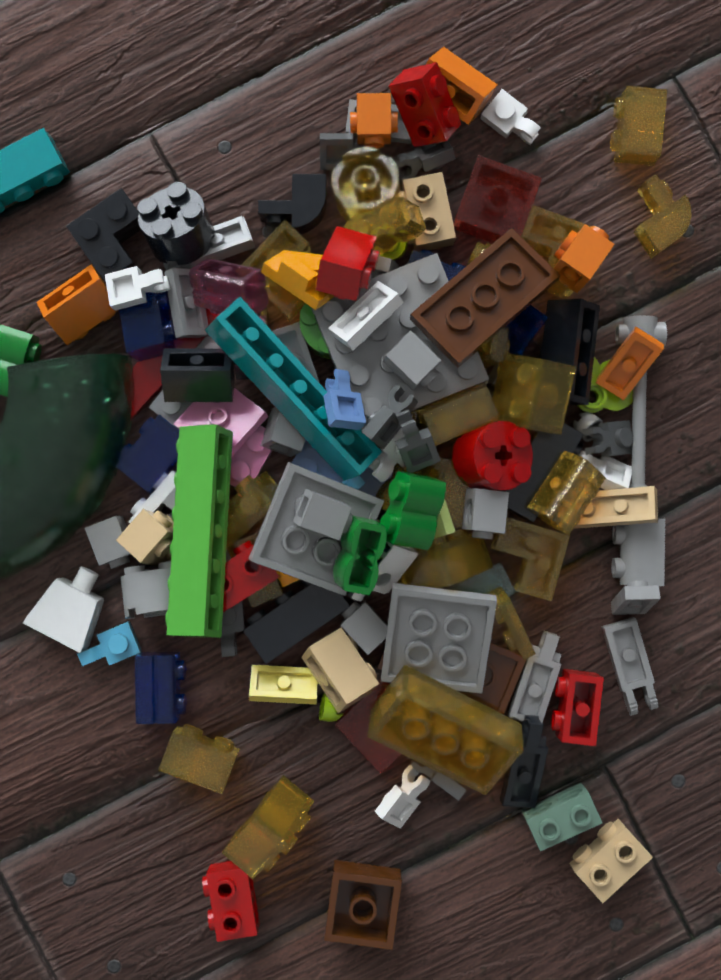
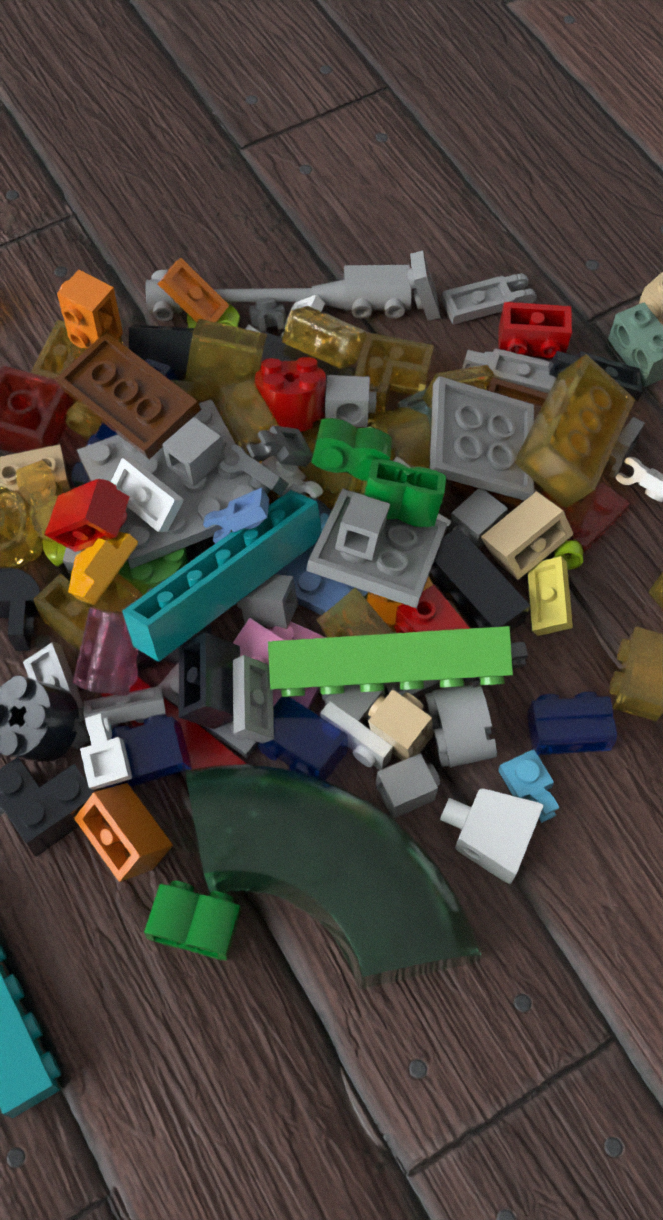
camera: 95 degrees left, 25 degrees down
(173, 411) = (252, 700): none -> light grey plate
(621, 507) = (335, 290): tan plate -> none
(669, 219) = (40, 281): clear yellow brick -> none

